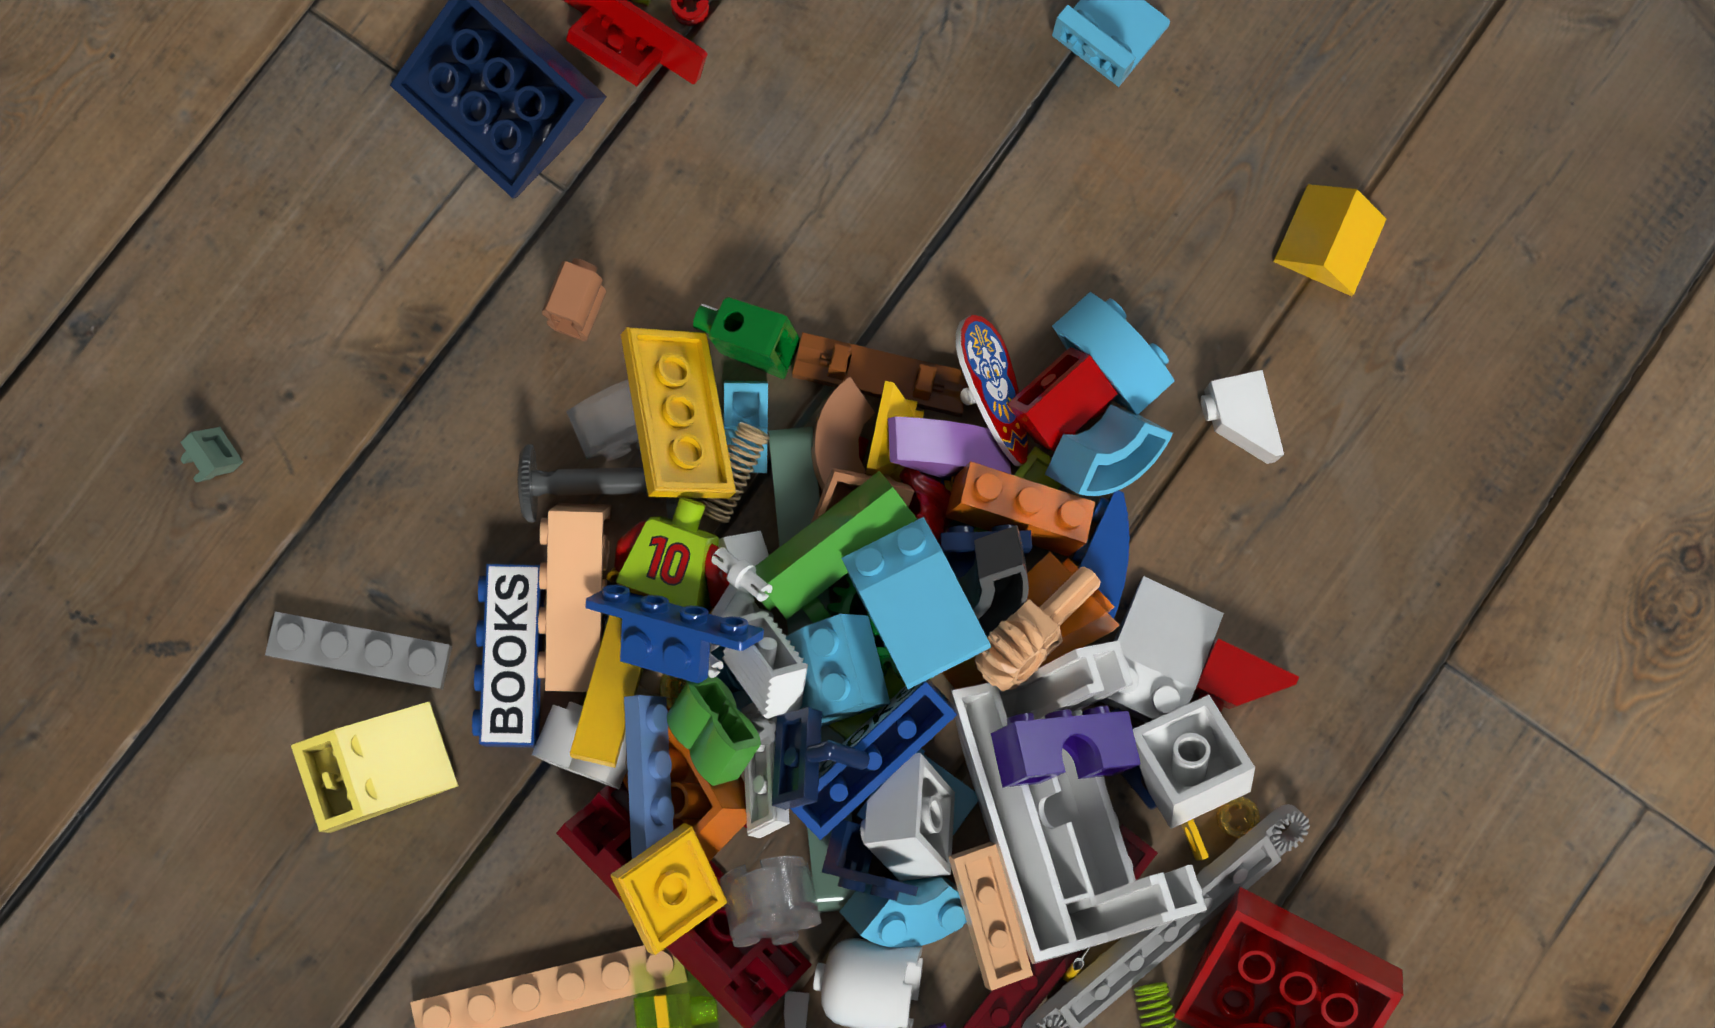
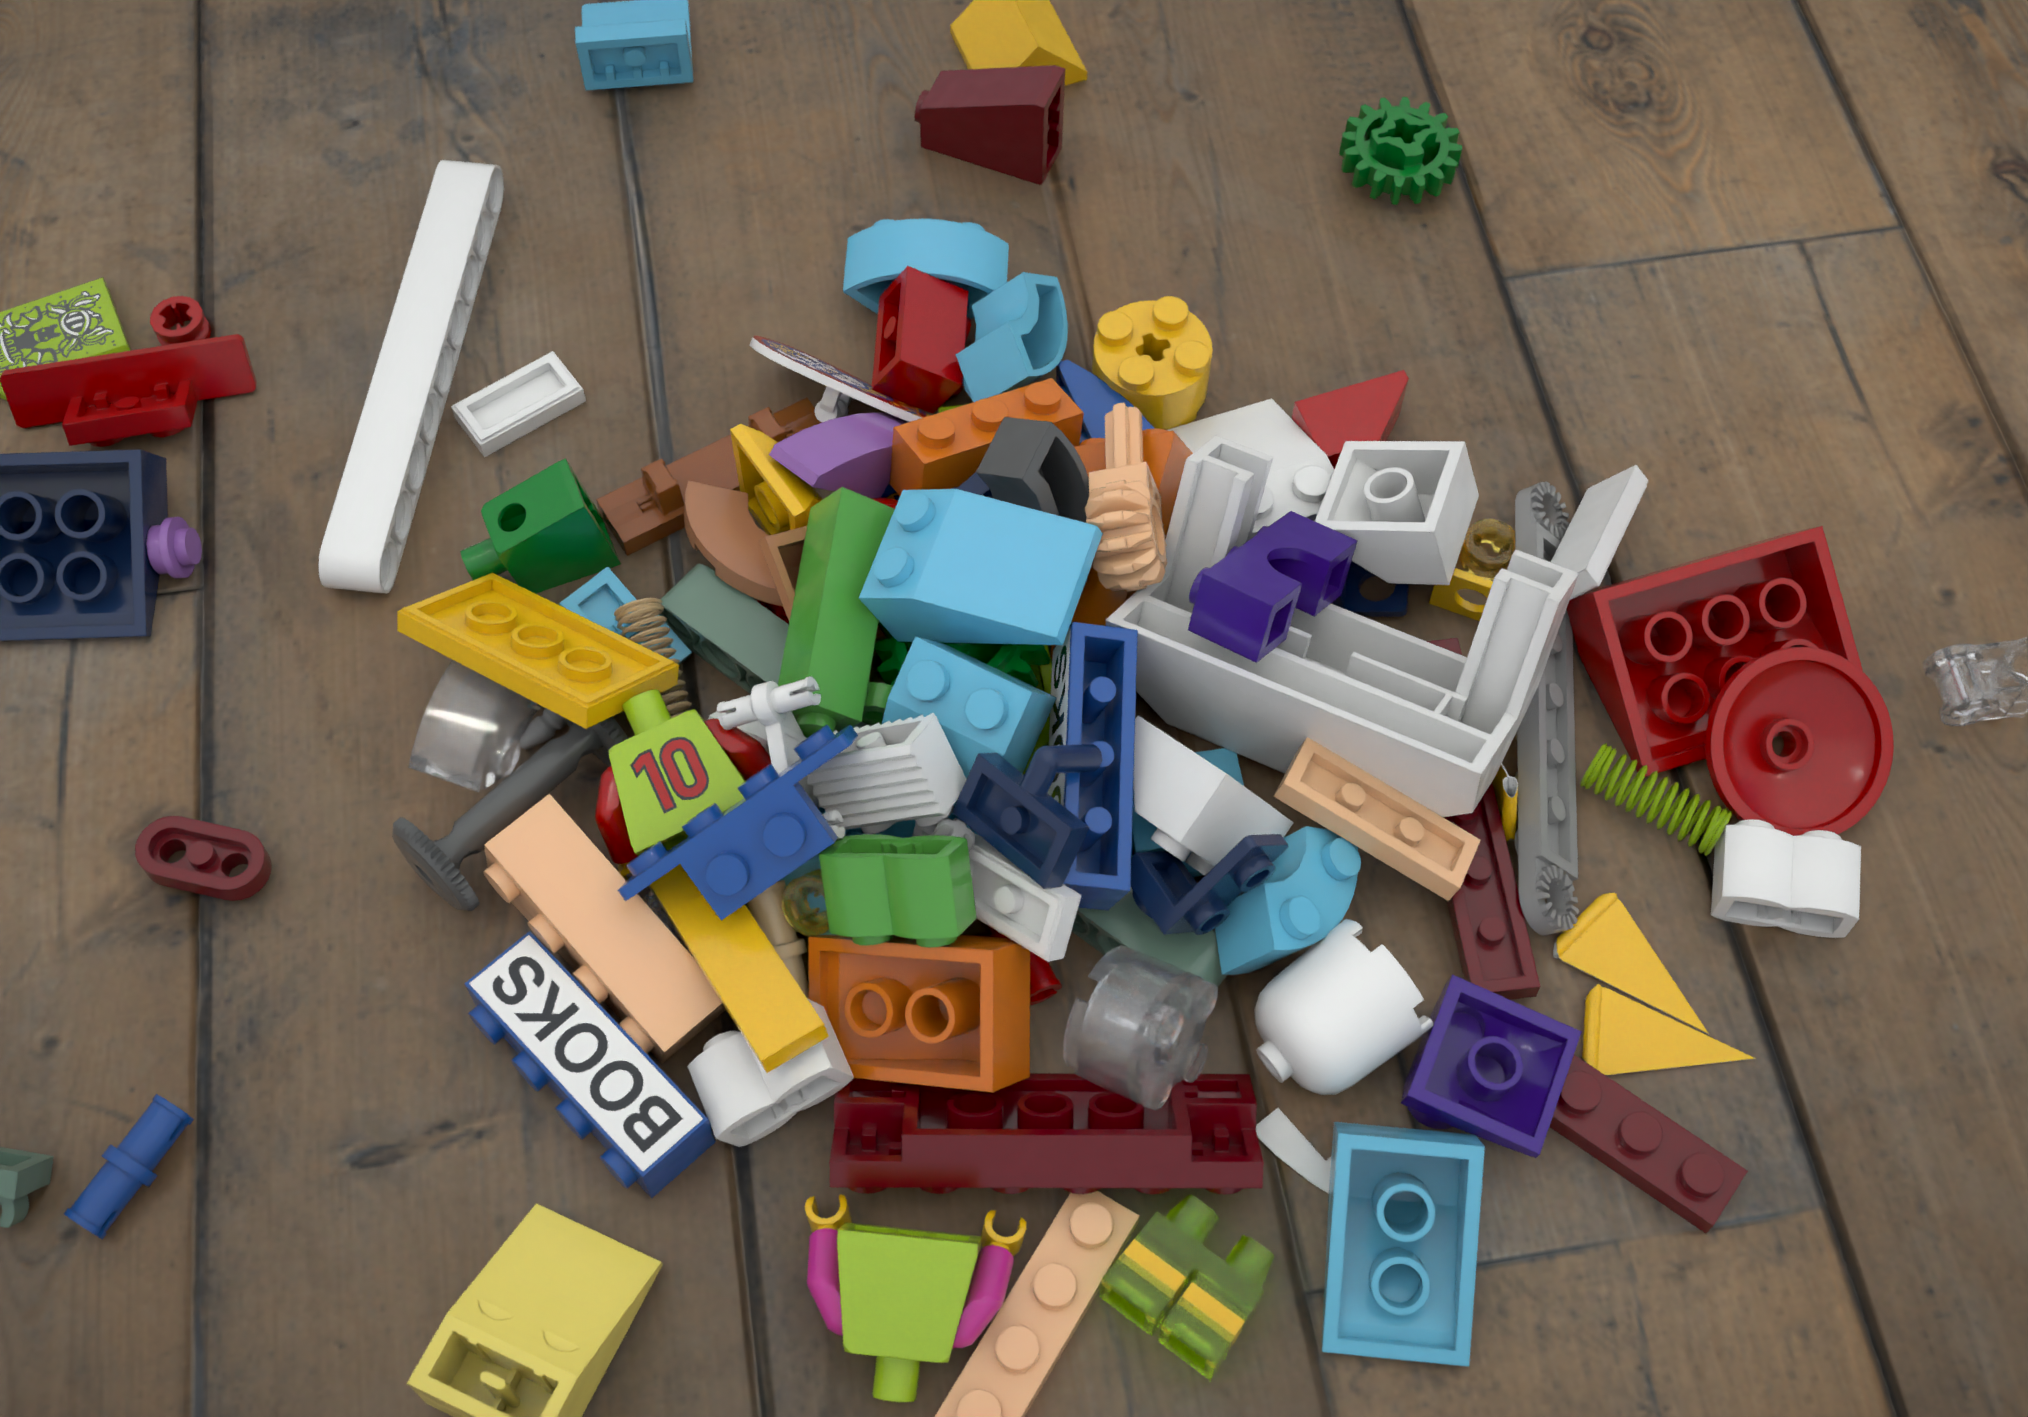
camera: 40 degrees left, 20 degrees down
(270, 503) = (129, 1166): none -> blue pin
(358, 650) = (392, 1232): light grey plate -> none
(433, 366) = (208, 859): none -> dark red plate
(546, 911) = (905, 1290): none -> lime torso
(566, 159) = (173, 548): none -> medium lavender plate
(574, 299) = (312, 650): nougat brick -> none
(648, 770) = (908, 1035): medium blue plate -> none
(669, 888) = (1022, 1093): yellow tile -> none
(783, 155) = (411, 380): none -> white beam
(820, 226) = (518, 403): none -> white tile
(1193, 526) = (1155, 359): none -> yellow brick
(1244, 414) = (1104, 224): white slope -> none
(1253, 285) = (996, 118): none -> dark red slope
(1289, 871) = (1599, 528): none -> white tile
(1480, 513) = (1396, 150): none -> green gear

